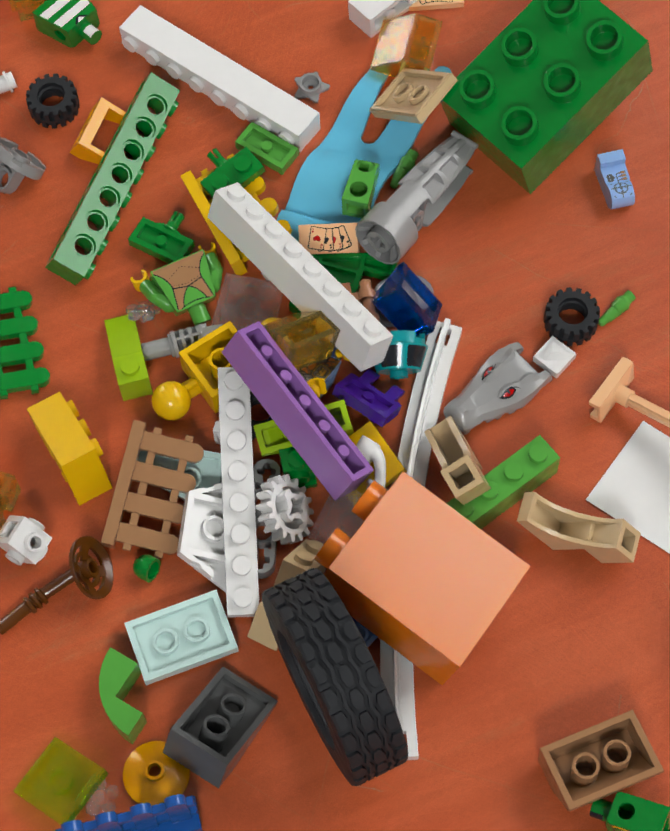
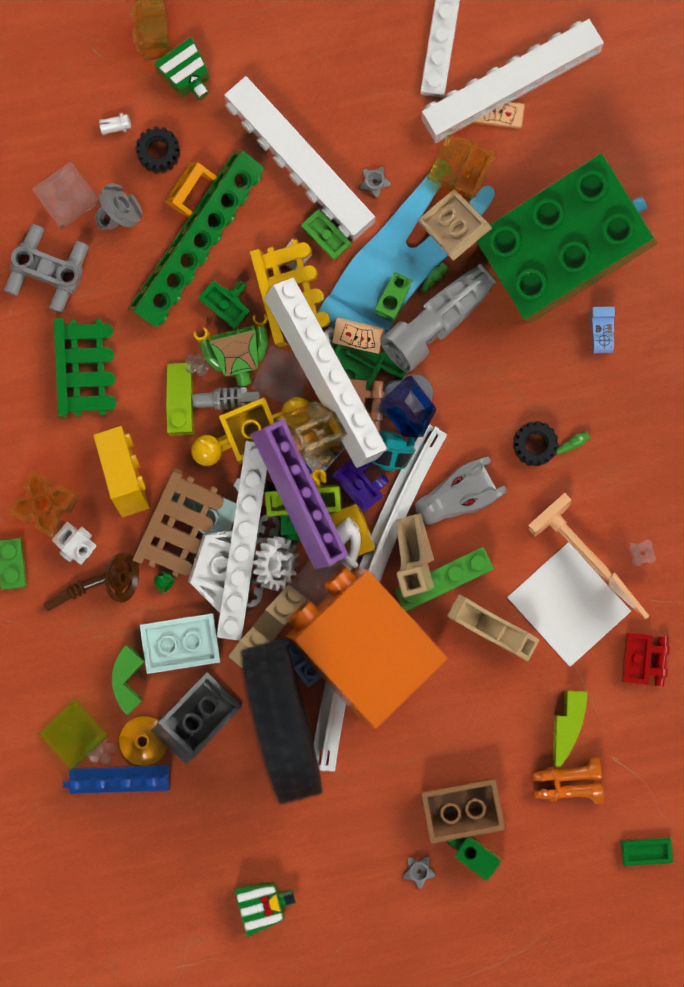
camera: 10 degrees right, 20 degrees up
(240, 168) = (291, 261): green plate -> none
(554, 357) = (513, 474): white tile -> none

